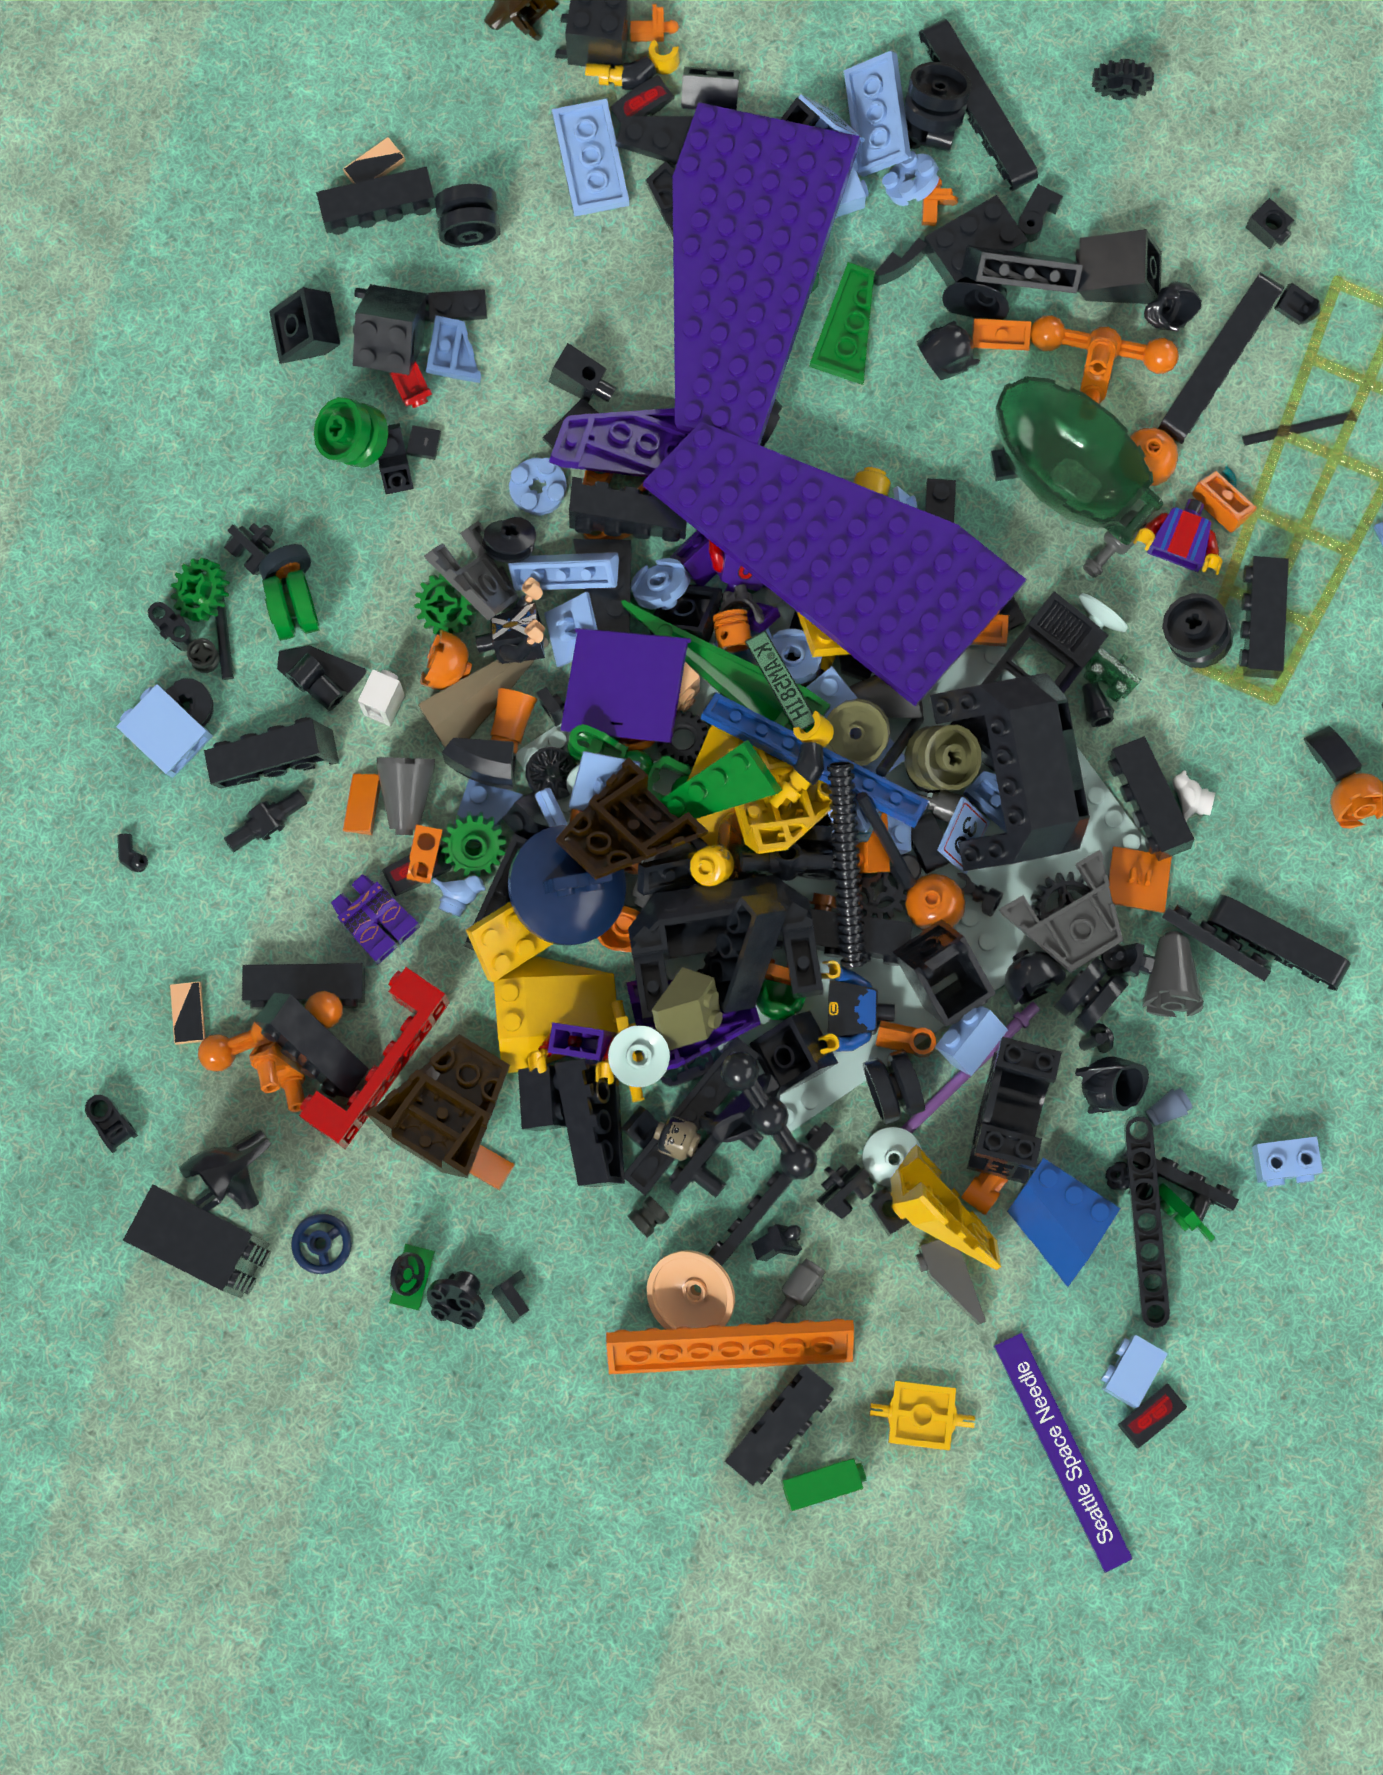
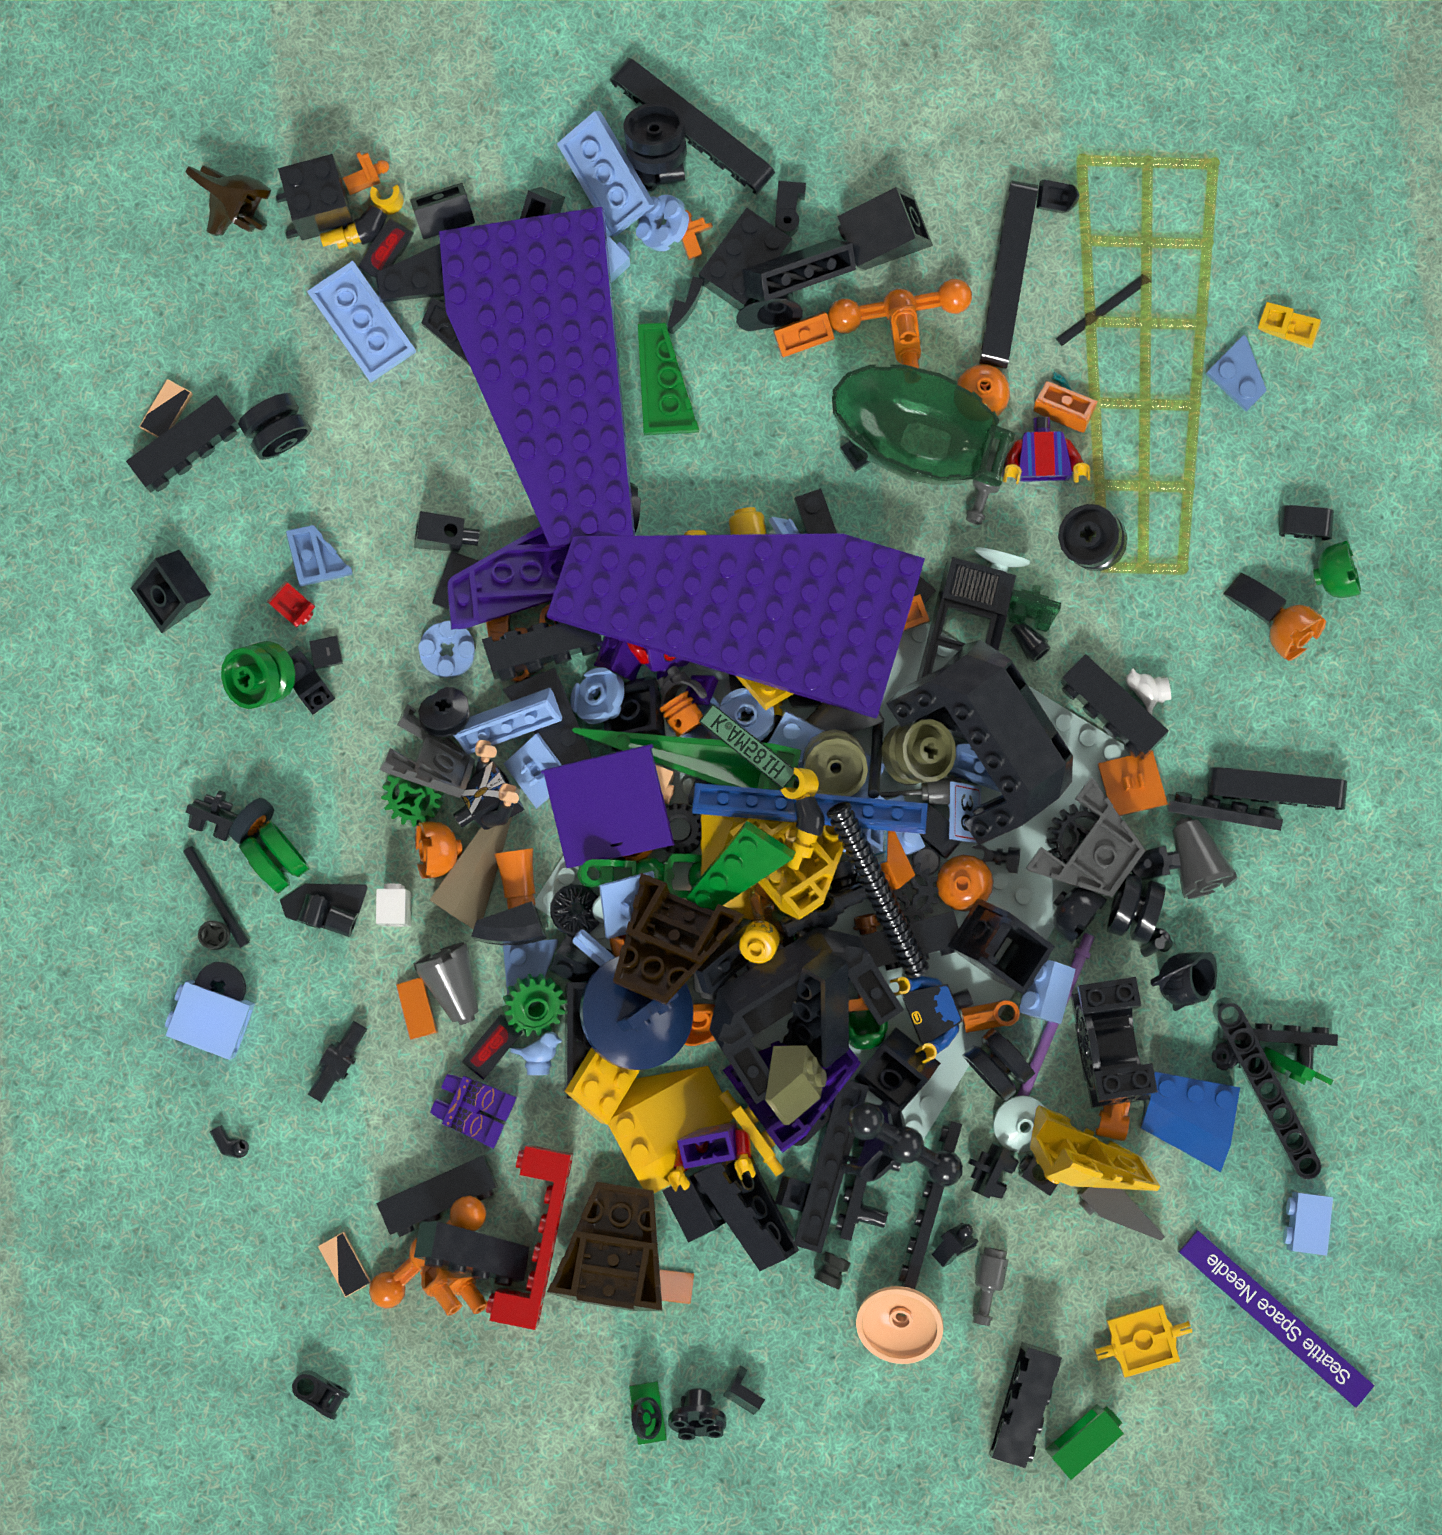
camera: 25 degrees left, 5 degrees up
(170, 625) = (173, 920): black piece -> none
(197, 1242) = (450, 1473): black window -> none
(200, 589) = (184, 876): green gear -> none
(227, 1172) = (444, 1393): black piece -> none
(270, 753) = (315, 1000): black wedge -> none
(299, 1236) = (567, 1436): dark blue piece -> none
(388, 328) = (250, 564): black container -> none
(423, 853) = (494, 1033): orange leg -> none
(457, 305) = (293, 514): black hinge -> none
(552, 705) = (549, 847): black plate -> none
(647, 1070) = (779, 1152): light aqua dish -> none
(677, 1138) = (829, 1192): dark tan head -> none
(730, 1346) = (953, 1355): orange plate -> none
(828, 118) = (566, 198): light blue piece -> none
(885, 839) = (903, 852): black bar -> none
(948, 350) = (763, 371): black helmet -> none
(1123, 79) = (814, 50): black gear -> none
(1152, 1416) = (1341, 1254): slope -> none
(1169, 1107) = (1243, 976): sand blue cone -> none
(1173, 307) = (947, 246): black hair -> none
(1265, 617) = (1146, 500): black brick -> none
(1270, 213) = (1001, 120): black brick -> none
(1287, 1160) = (1363, 980): light blue brick -> none

